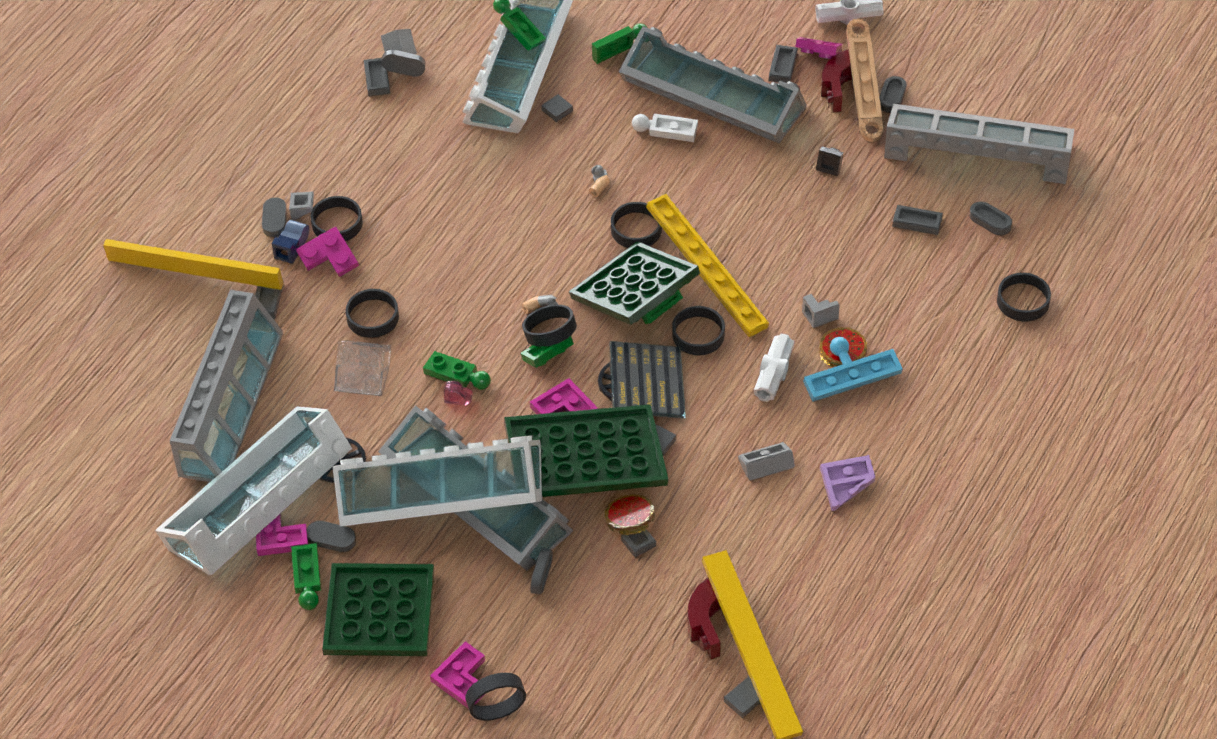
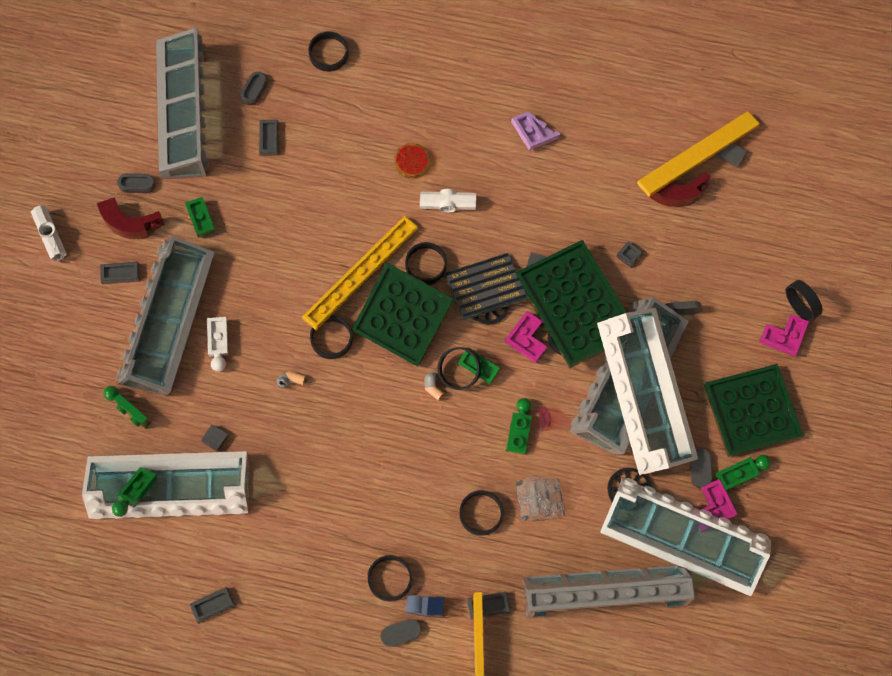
camera: 110 degrees left, 20 degrees up
(301, 204) = (384, 611): light grey slope -> none
(328, 246) = (426, 571): dark pink plate -> none
(399, 40) = (172, 596): light grey panel -> none
(403, 63) = (196, 582): dark grey tile -> none
(629, 514) = (614, 262): tile -> none
(767, 461) = (530, 188): light grey slope -> none
(821, 312) = (382, 183): light grey panel -> none
(824, 48) = (97, 240): dark pink plate -> none
(828, 137) = (200, 217): none -> green plate
(829, 160) = (226, 209): black tile -> none
(851, 374) = (437, 146): medium azure plate -> none
(864, 80) = (136, 198): light nougat plate -> none

